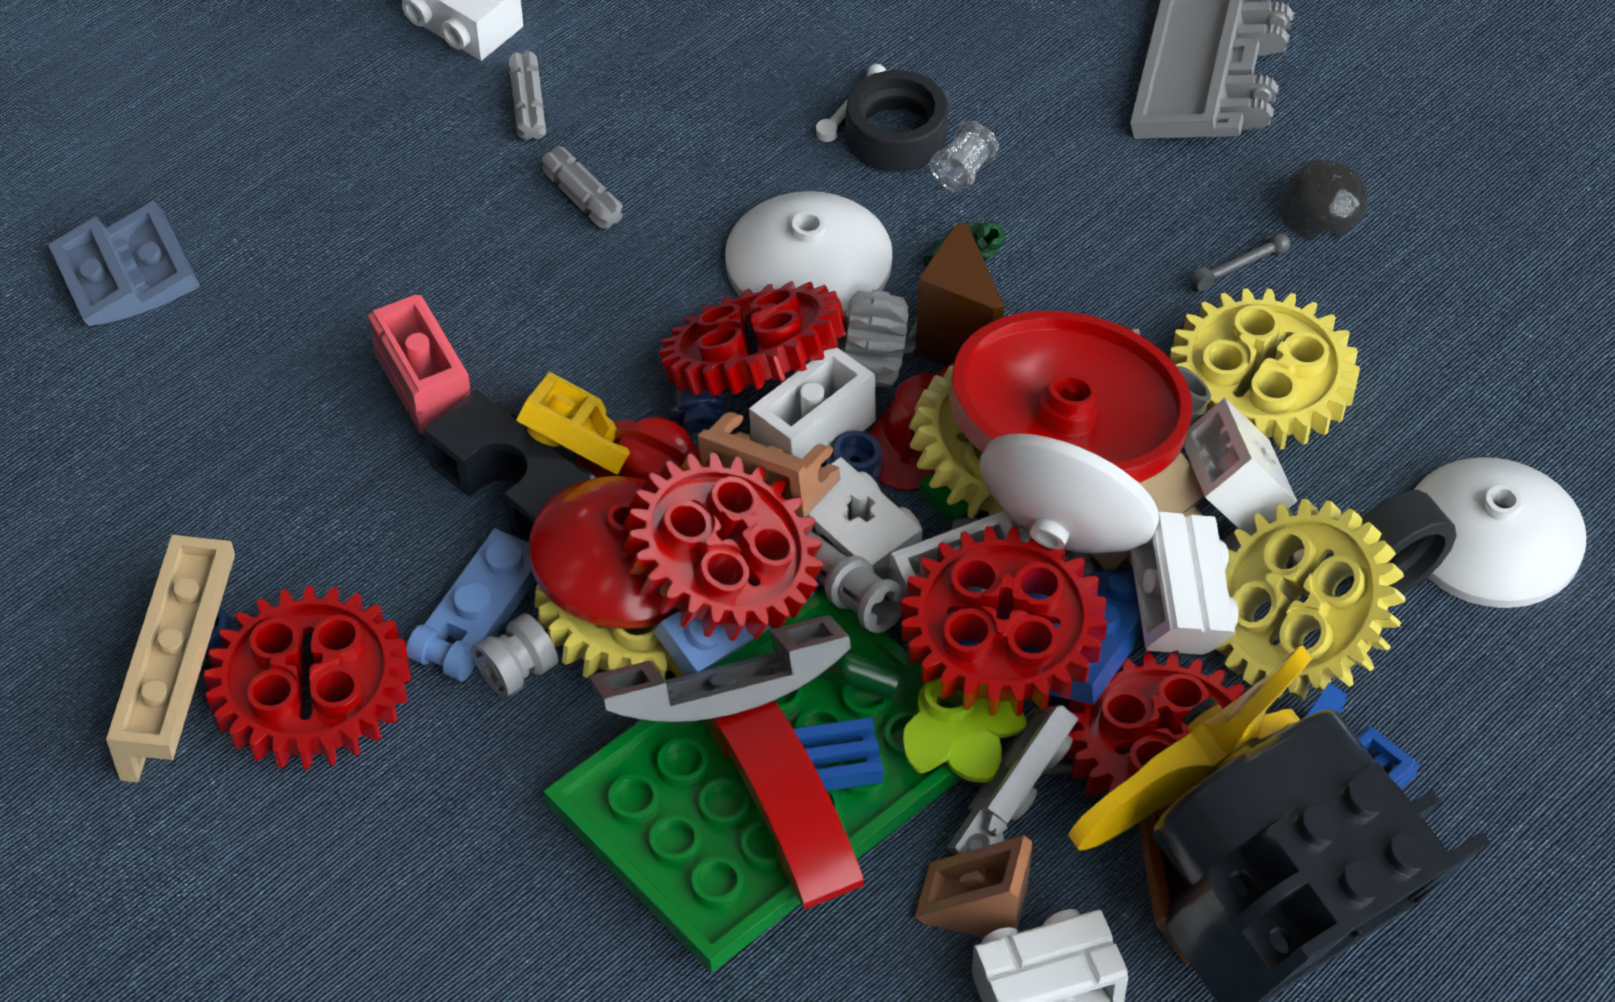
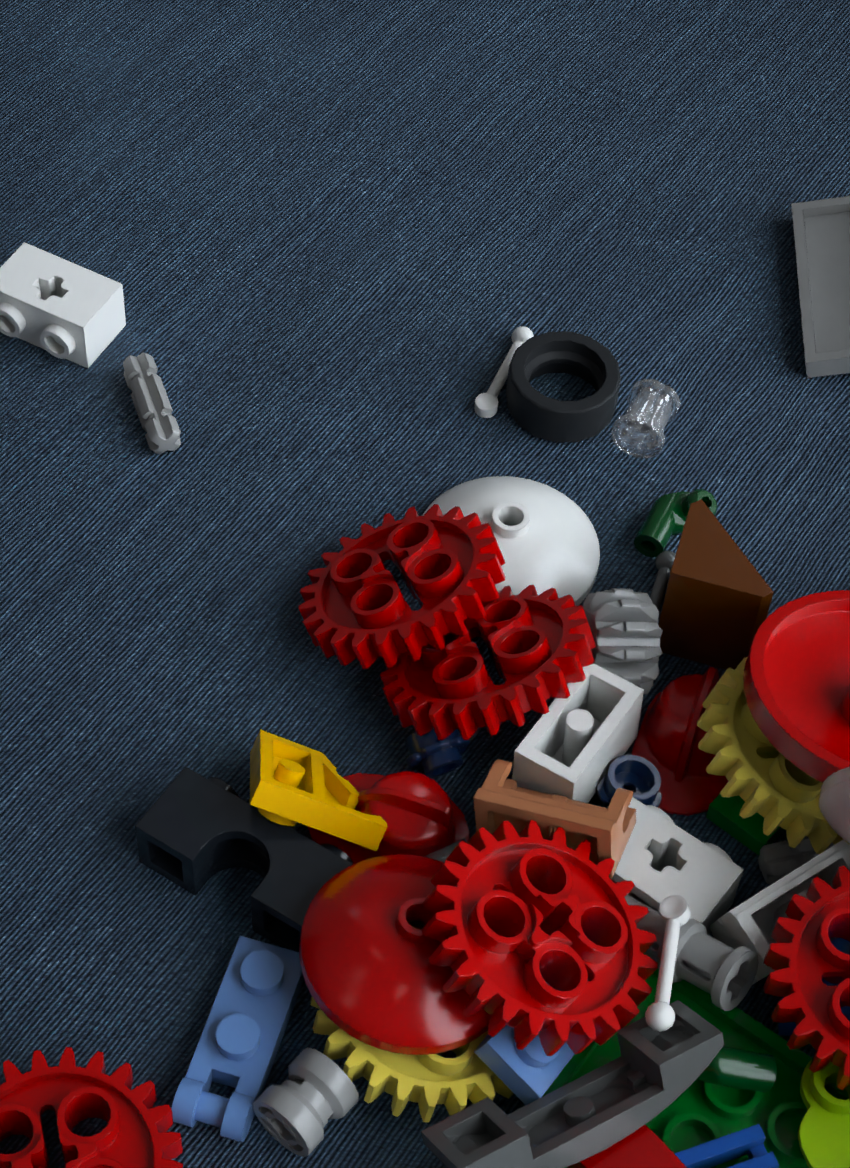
camera: 15 degrees left, 0 degrees up
(418, 359) = (109, 740): coral brick -> none
(582, 187) = (238, 502): light grey axle -> none
(733, 252) = (359, 608): none -> red gear
(844, 547) = (674, 913): none -> white hinge

